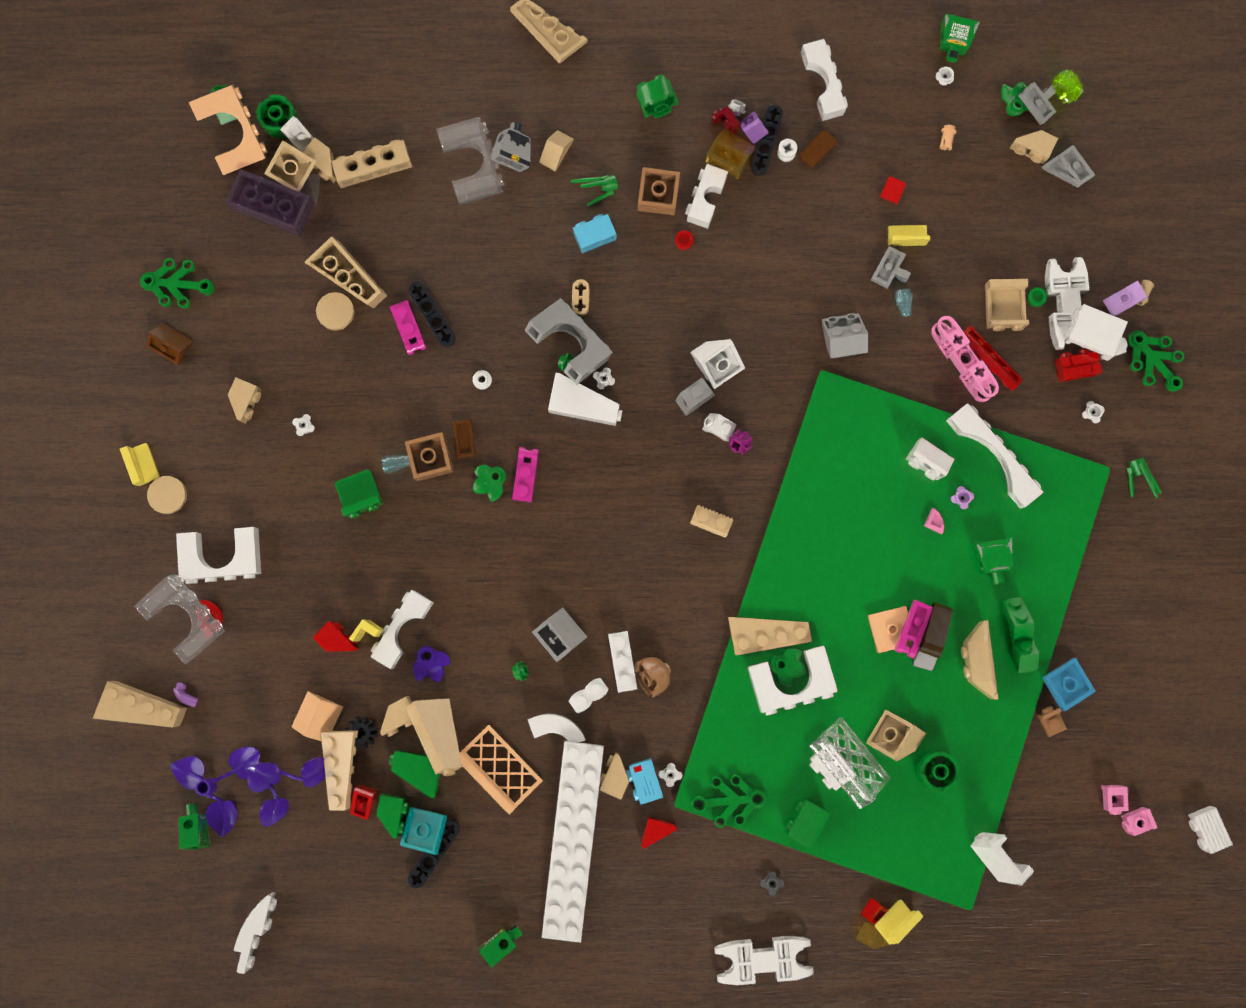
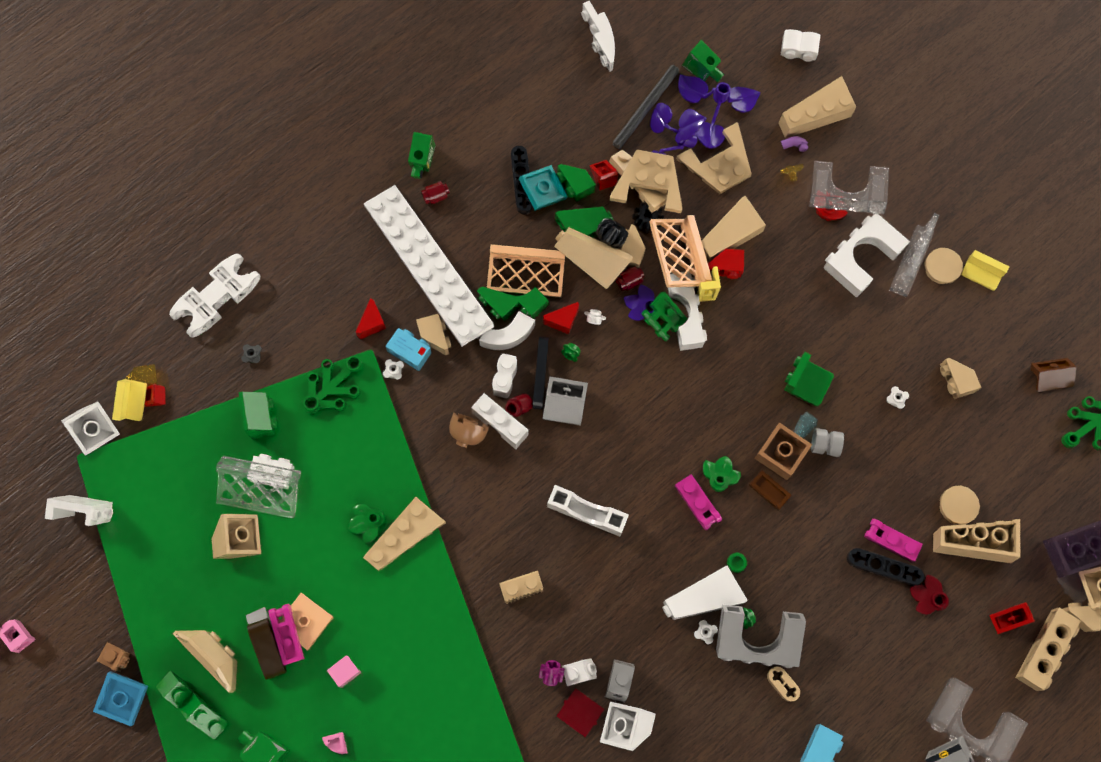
camera: 135 degrees right, 10 degrees down
(97, 778) = (800, 45): none -> white brick
(184, 520) = (913, 257): none -> clear fence
(209, 673) = (792, 170): none -> clear yellow plant
(261, 722) = (725, 168): none -> tan wing
(274, 833) = (645, 107): none -> dark grey axle
(301, 663) = (733, 229): none -> tan slope
(316, 716) = (693, 201): light nougat slope -> none
(326, 763) = (650, 172): none -> tan wing
(354, 667) = (694, 251): none -> light nougat fence
(376, 204) = (1012, 618): none -> red slope
(388, 434) = (831, 443): none -> light grey wheel
(405, 739) = (612, 233): none -> black gear
(417, 637) = (668, 312): none -> green plate
(421, 270) = (926, 596): none -> dark red plate
(421, 691) = (630, 278): none -> dark red brick
(477, 684) = (594, 316): none -> white plate
(484, 385) = (794, 552): white plate -> none
(504, 704) = (562, 318): none -> red slope
(514, 901) = (435, 193): none -> dark red brick
(537, 408) = (736, 562): none -> green tile
(540, 754) = (505, 305): none -> green arch
(558, 674) = (540, 373): none -> black beam
(597, 661) = (519, 405): none -> dark red brick
(615, 535) = (585, 511): none -> white arch
(742, 399) = (580, 712): none -> dark red piece
(820, 683) = (360, 486): white arch -> none
(892, 566) = (343, 671): none -> bright pink panel
(945, 925) = (90, 427): none -> white slope
(949, 770) = (179, 526): green brick -> none

